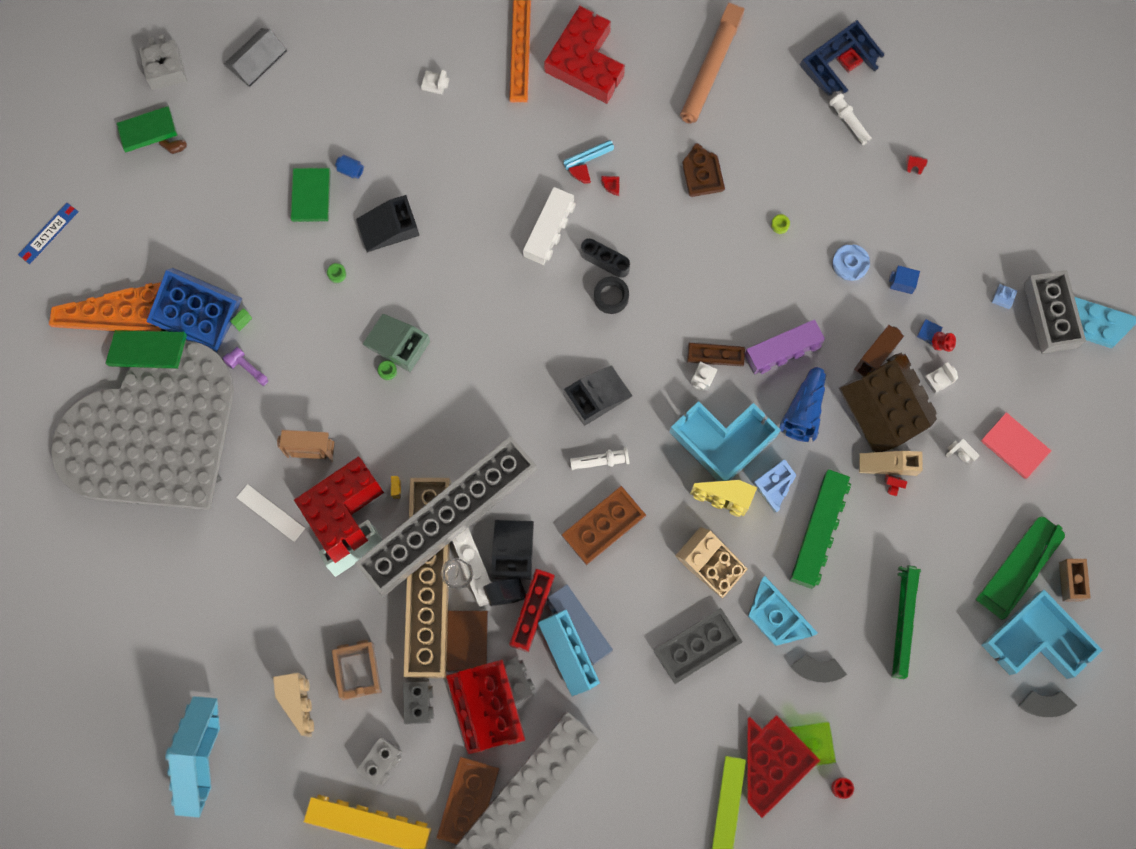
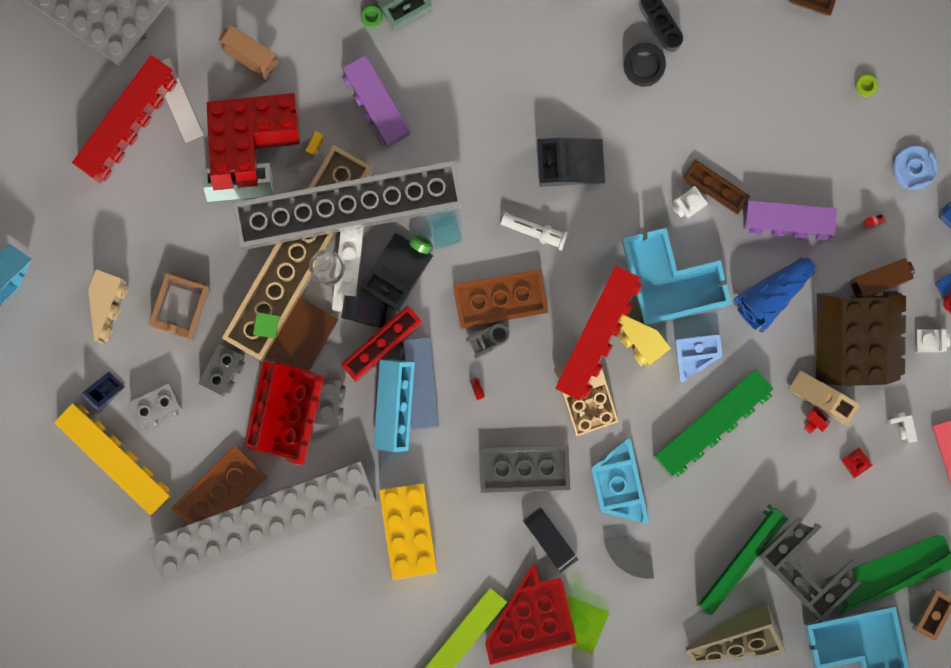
camera: 25 degrees right, 10 degrees up
(236, 548) = (125, 119): none -> red brick
(330, 774) = (102, 391): none -> dark blue slope
(425, 429) = (376, 101): none -> medium lavender brick
(434, 645) = (266, 325): none -> bright green tile
(519, 517) = (420, 243): none -> bright green tile
(531, 497) = (444, 230): none -> clear light blue piece
(612, 562) = (487, 340): none -> dark grey piece
(626, 605) = (478, 391): none -> red tile
(636, 747) = (408, 531): none -> yellow brick
(697, 504) = (598, 333): none -> red brick
(750, 690) = (550, 540): none -> black beam
(845, 315) = (874, 221): none -> red tile
(932, 604) = (816, 600): none -> dark grey wedge
(943, 498) = (856, 462): none -> red tile
(943, 678) = (745, 635): none -> dark tan wedge

